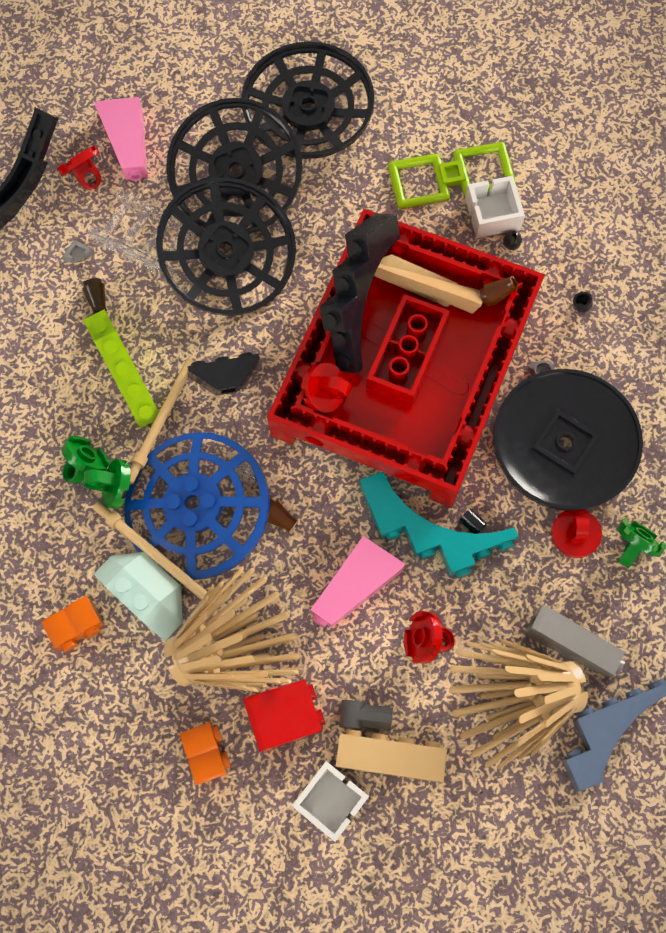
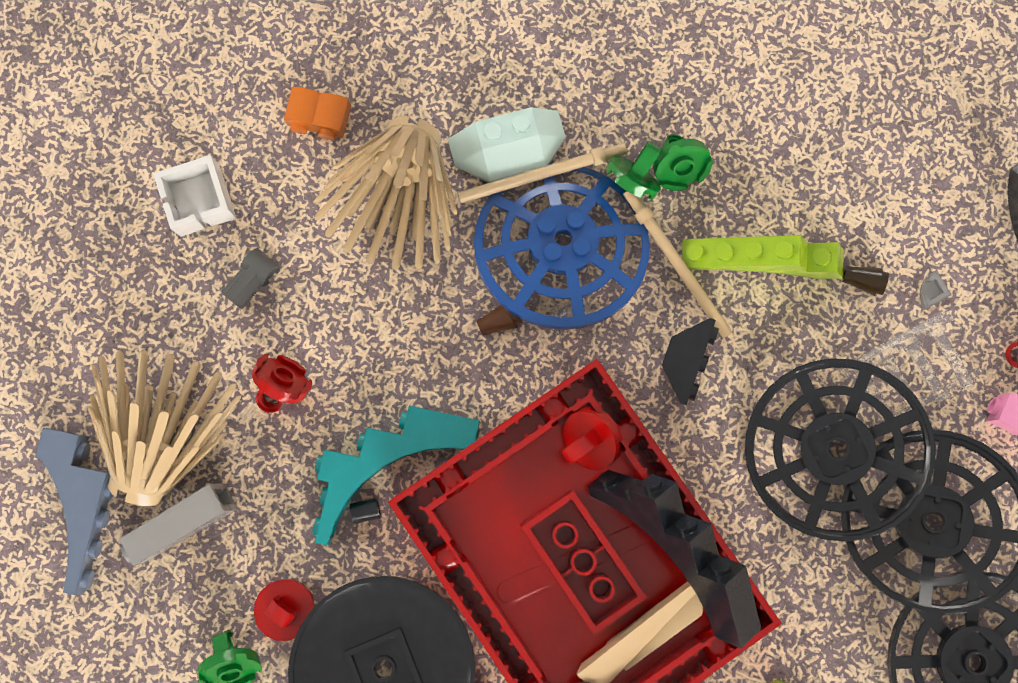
camera: 115 degrees right, 10 degrees up
(73, 624) = (518, 63): orange brick -> none
(283, 715) = (290, 198): slope -> none
(356, 581) = (381, 353): bright pink slope -> none
(391, 757) = (195, 276): tan brick -> none

